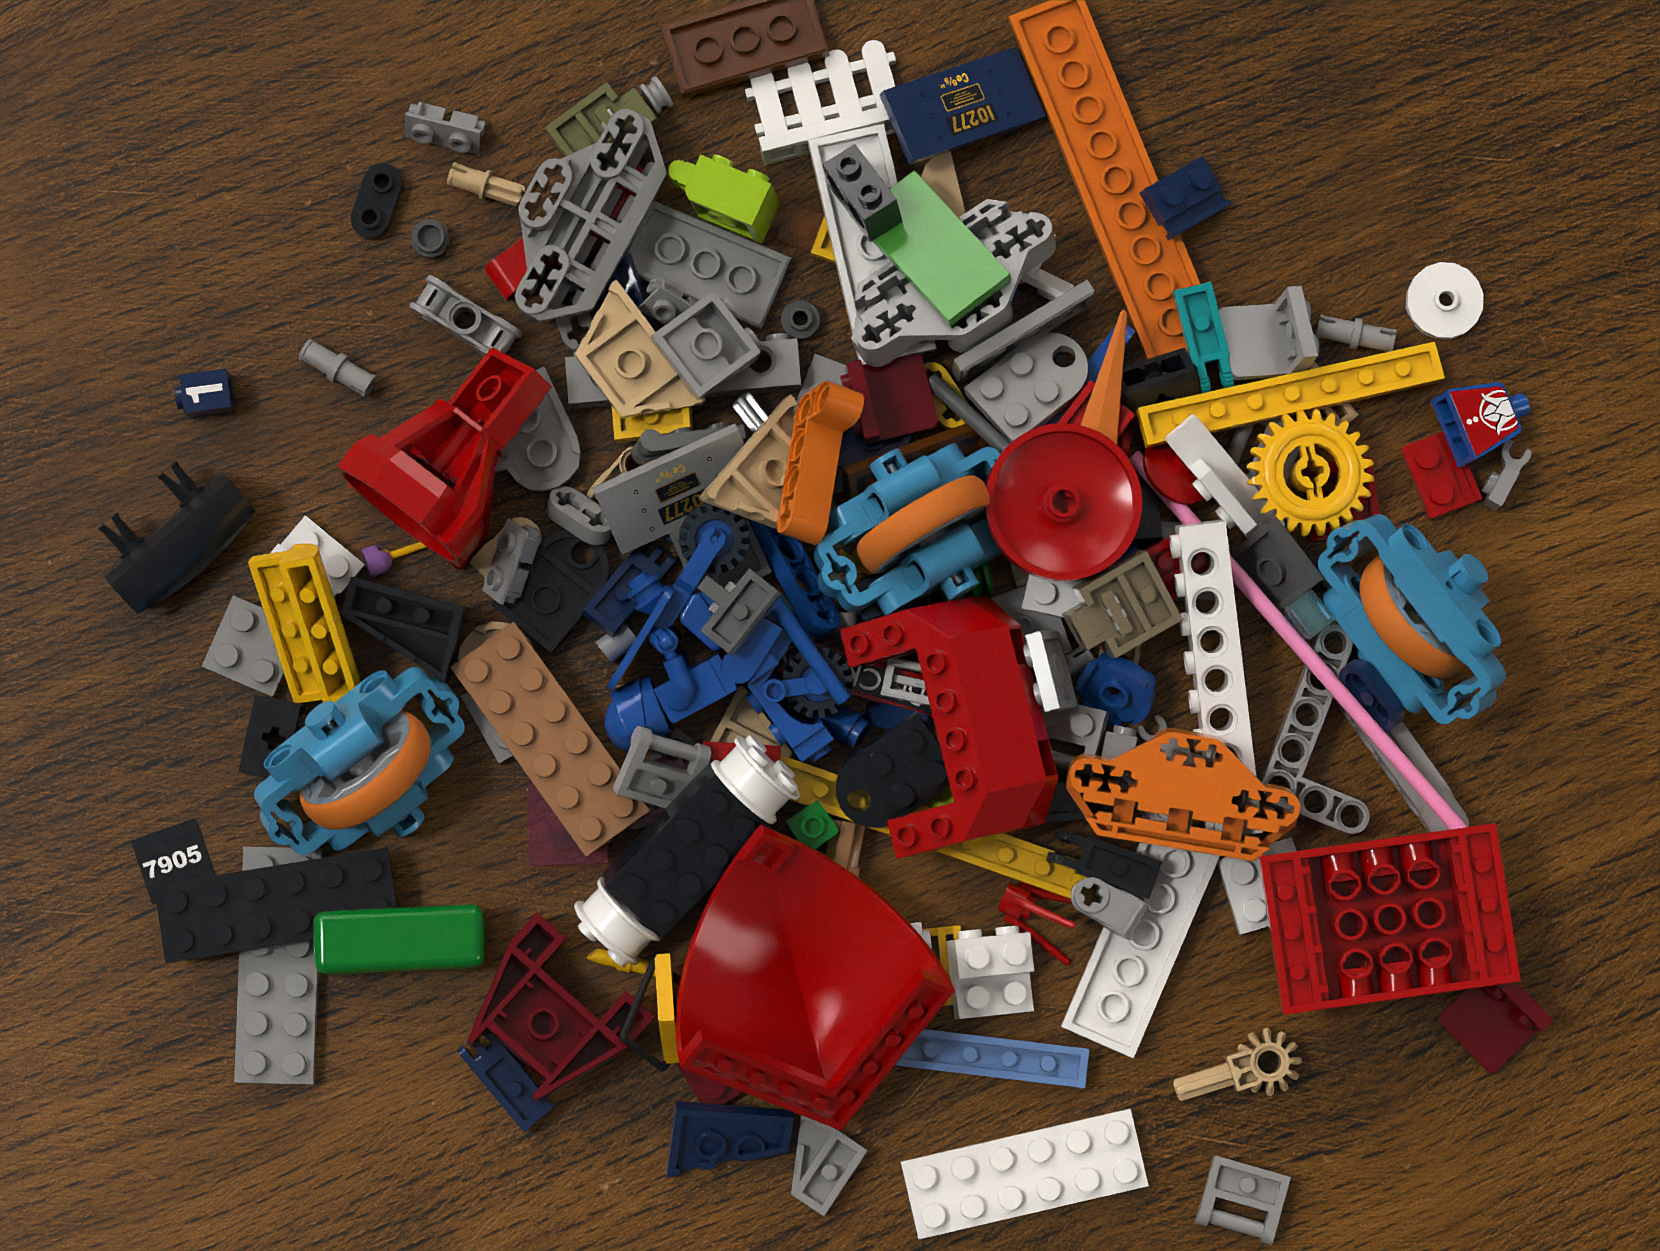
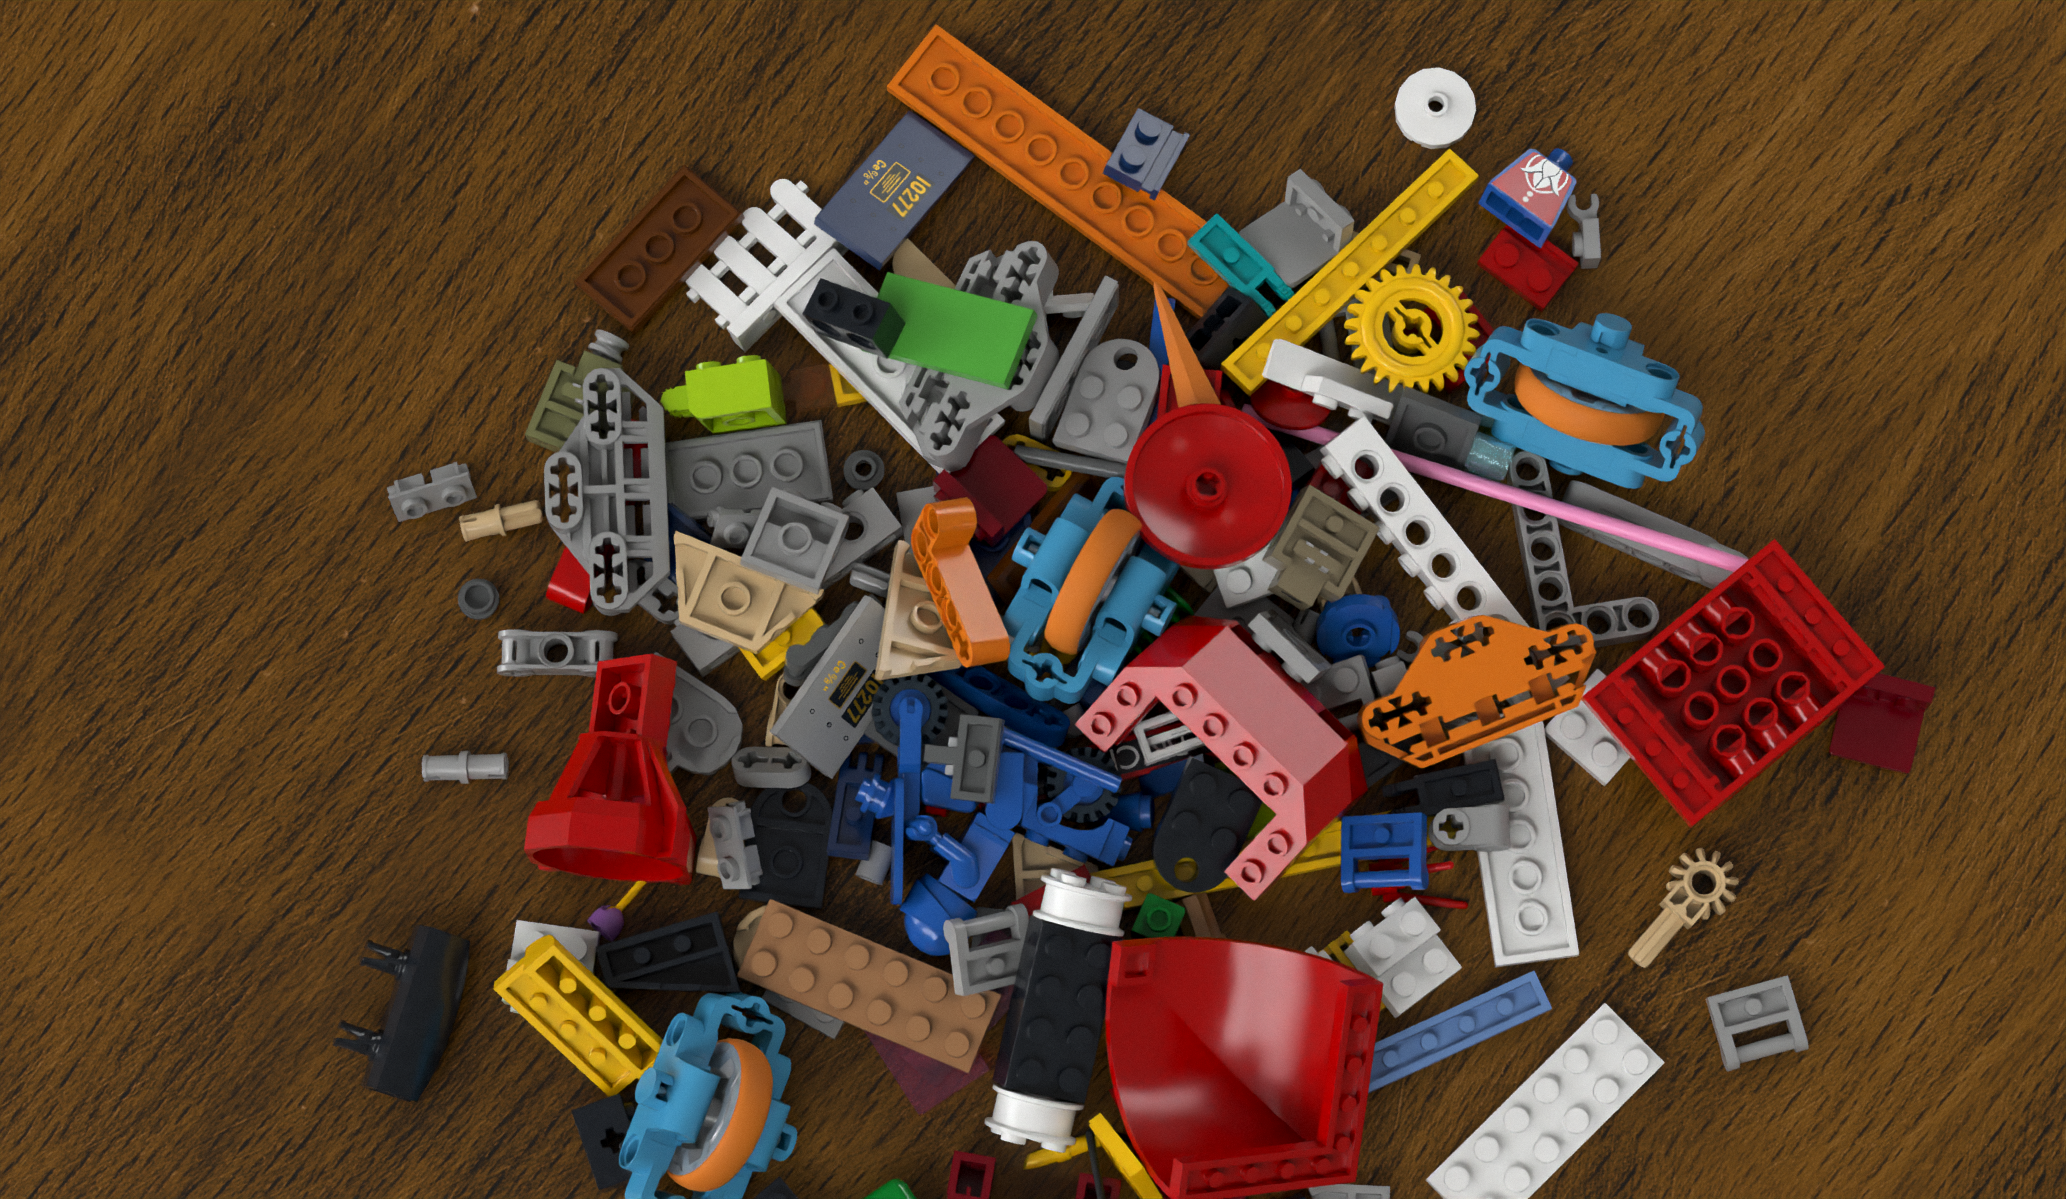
camera: 25 degrees left, 5 degrees down
(205, 393) = (356, 864): dark blue brick -> none
(246, 649) = (536, 1075): light grey plate -> none
(376, 200) = (408, 594): black plate -> none
(1031, 871) = (1384, 838): none -> blue plate
(1356, 333) = (1374, 183): light grey pin -> none
(1372, 693) = (1591, 492): dark blue plate -> none

